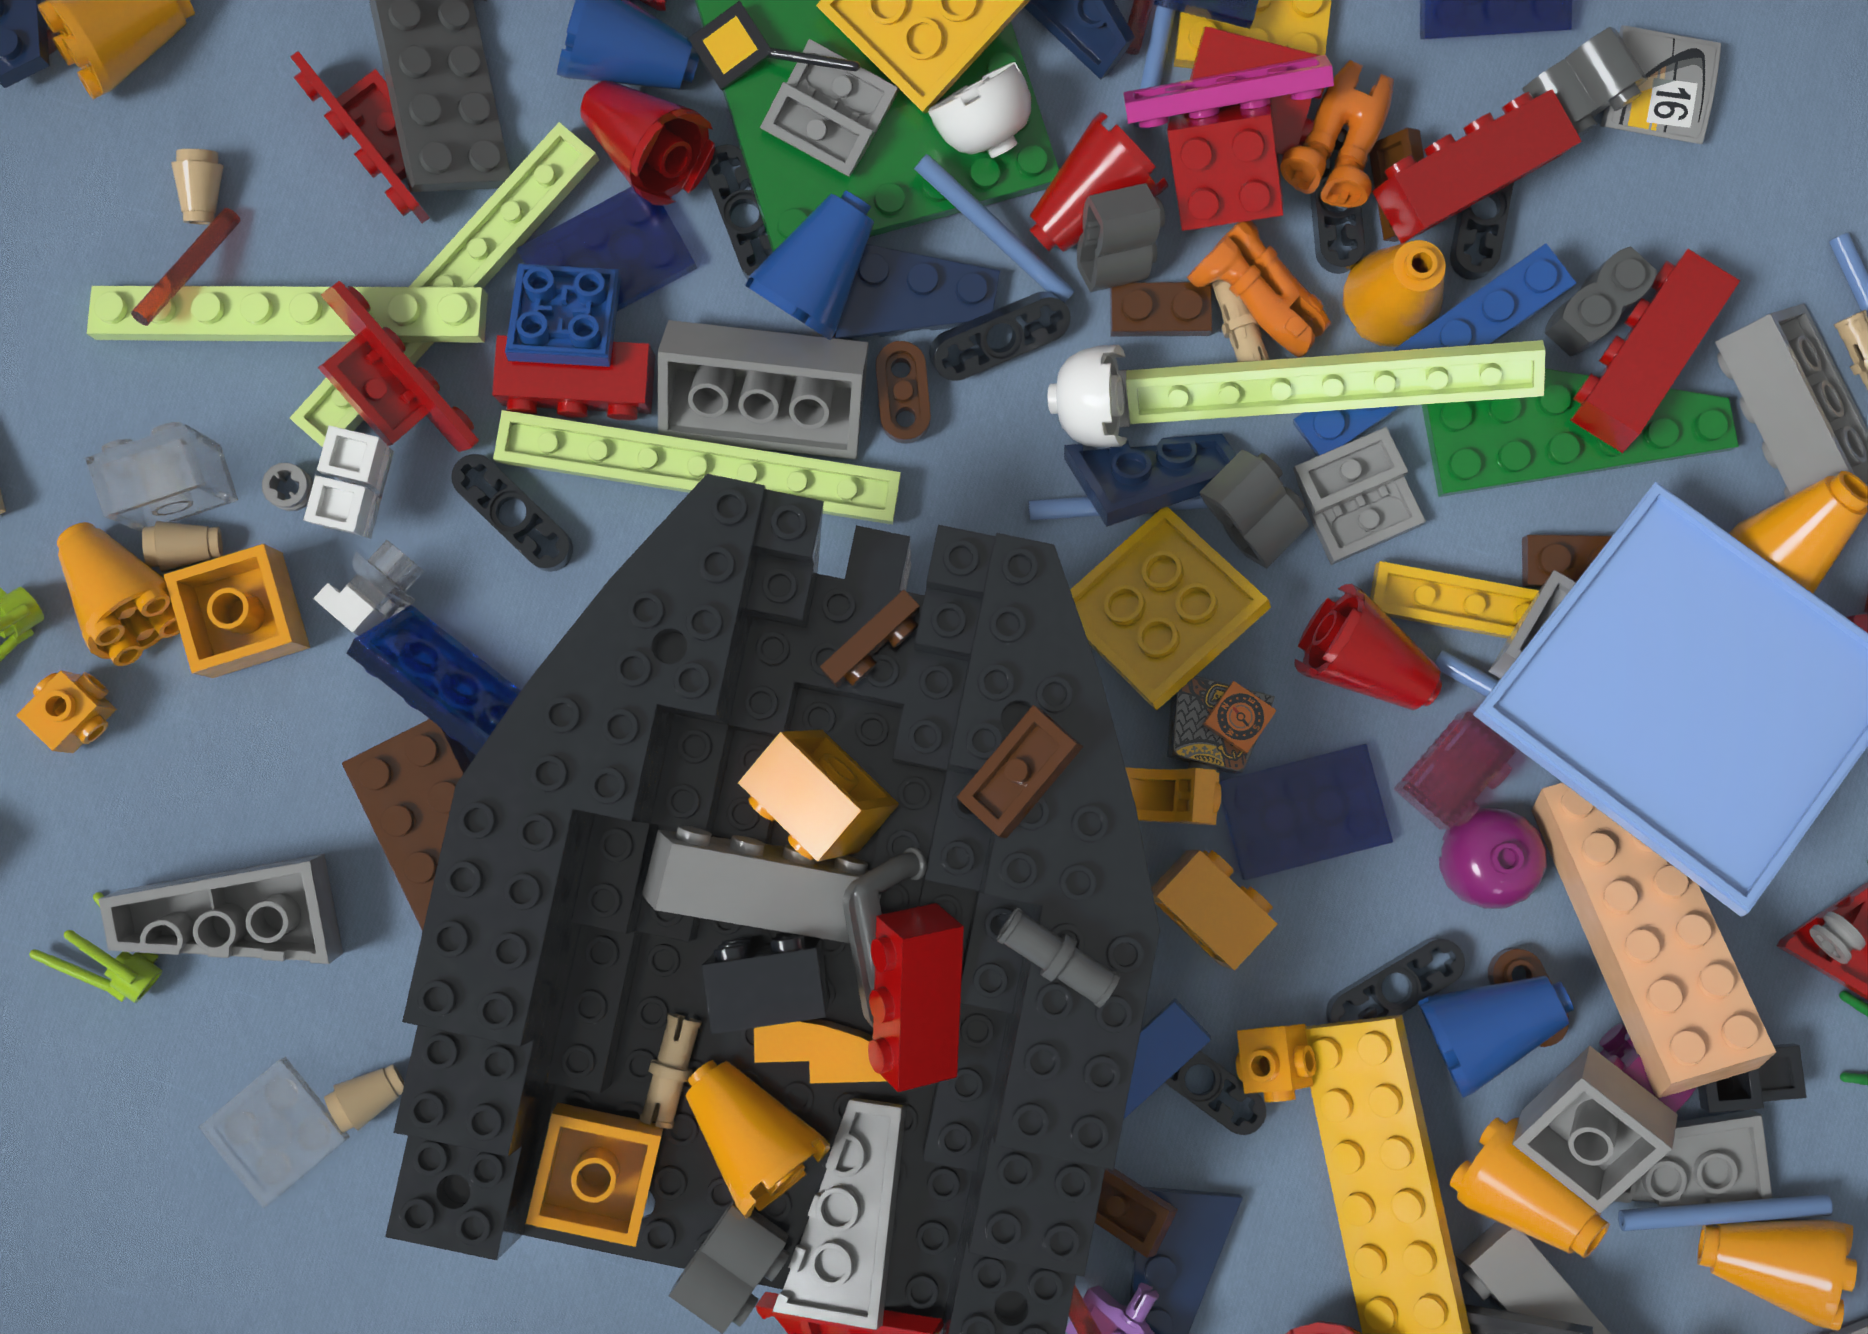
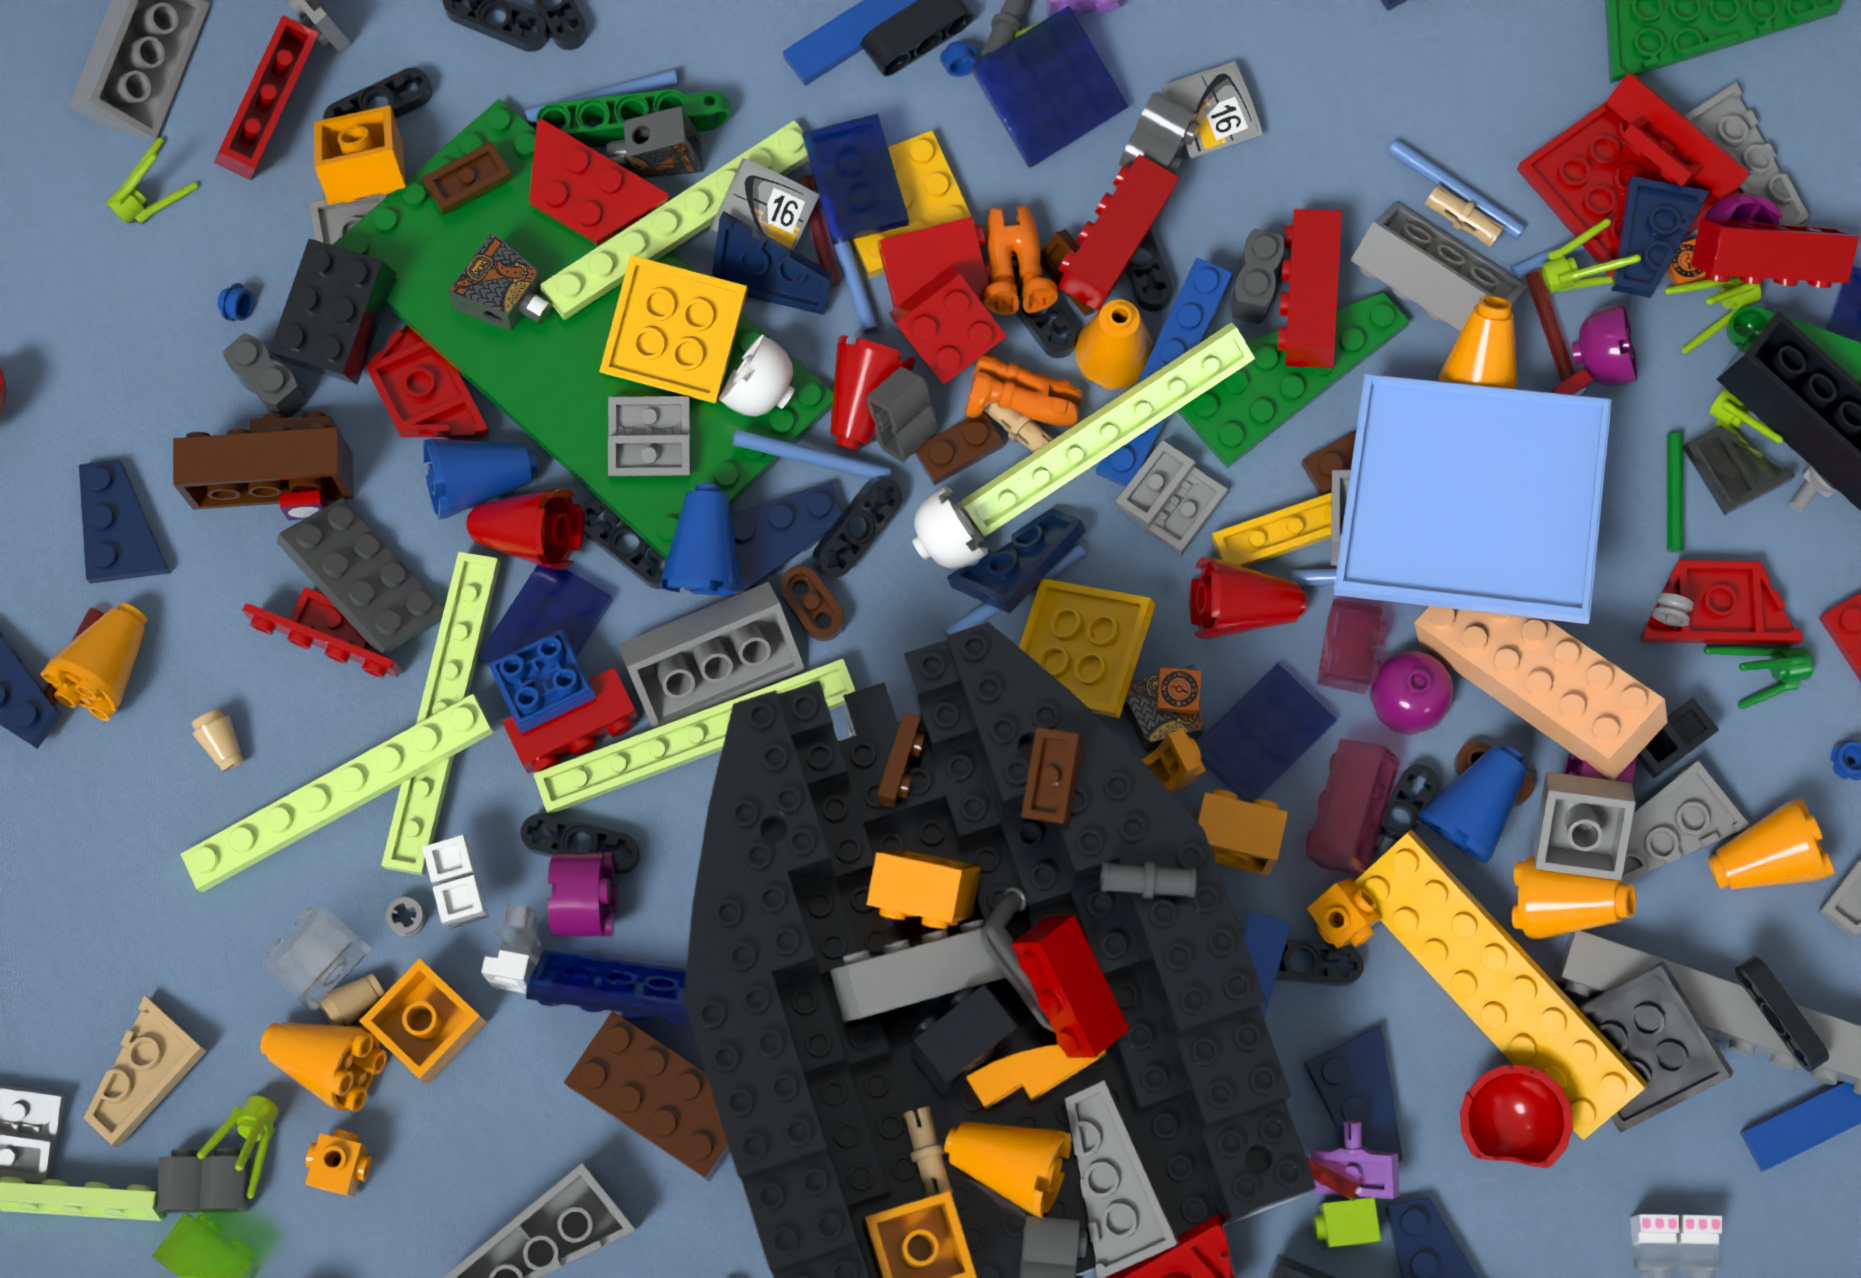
camera: 25 degrees left, 10 degrees down
(185, 267) = (246, 799): clear red bar -> none
(383, 381) = (441, 796): red bracket -> none
(475, 571) = (582, 894): none -> magenta brick
(735, 46) = (557, 430): piece -> none
(1133, 1213) = (1313, 1077): reddish brown plate -> none
(1246, 87) = (933, 264): dark pink plate -> none
(1255, 507) = (1105, 544): dark grey brick -> none
(1353, 948) = (1352, 806): none -> clear pink brick
(1725, 1212) = (1714, 841): medium blue piece -> none

